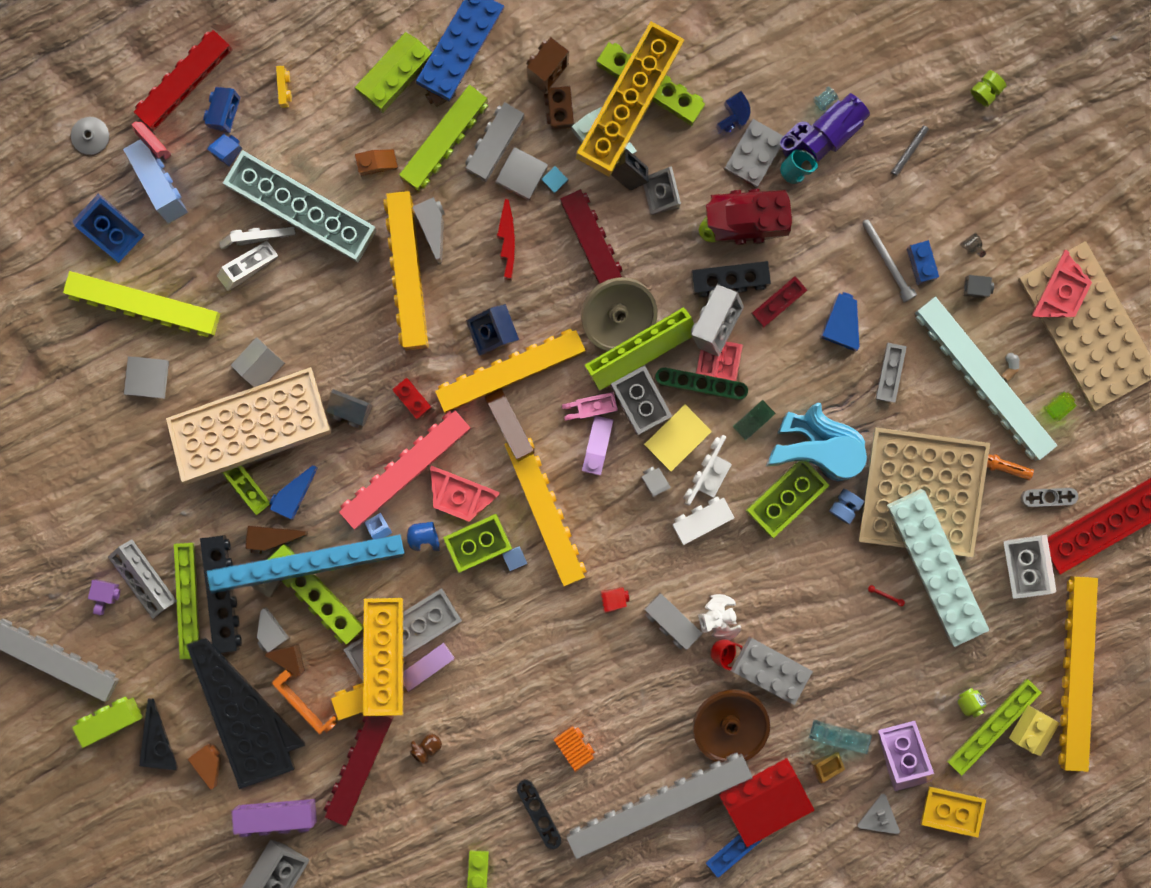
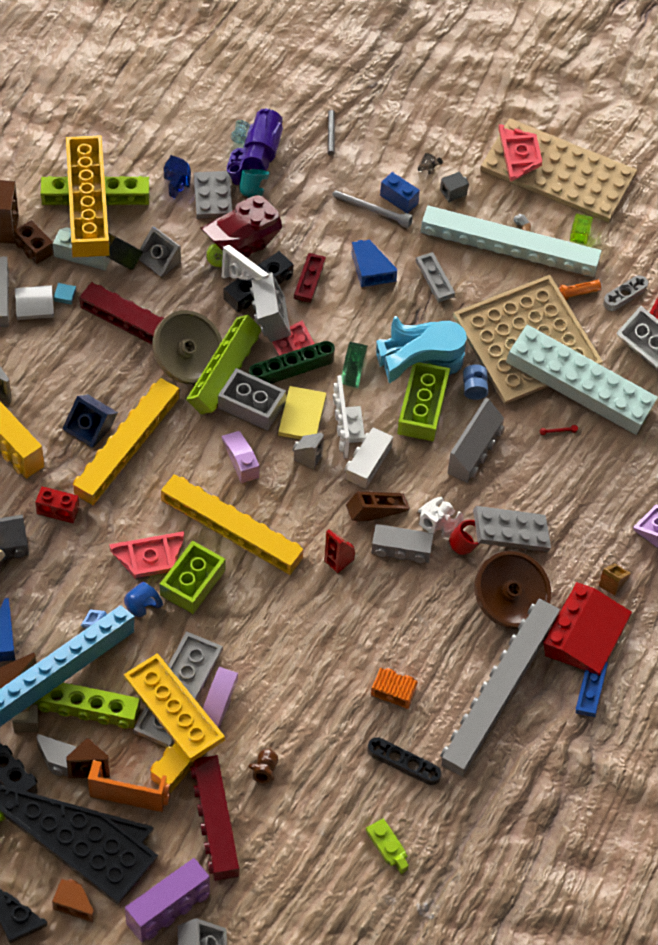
camera: 30 degrees left, 30 degrees down
(402, 472) = (88, 563): coral brick -> none
(507, 233) = (55, 349): red slope -> none
(509, 425) = (155, 474): tile -> none
(514, 558) = (232, 575): light blue slope -> none
(592, 406) = (213, 430): bright pink hinge -> none
(677, 571) = (375, 505): none -> reddish brown slope
(717, 265) = (238, 266): none -> white wing
(803, 567) = (476, 442): none -> light grey slope
(840, 736) = (605, 547): clear light blue slope -> none
(986, 91) = (357, 62): lime wheel -> none

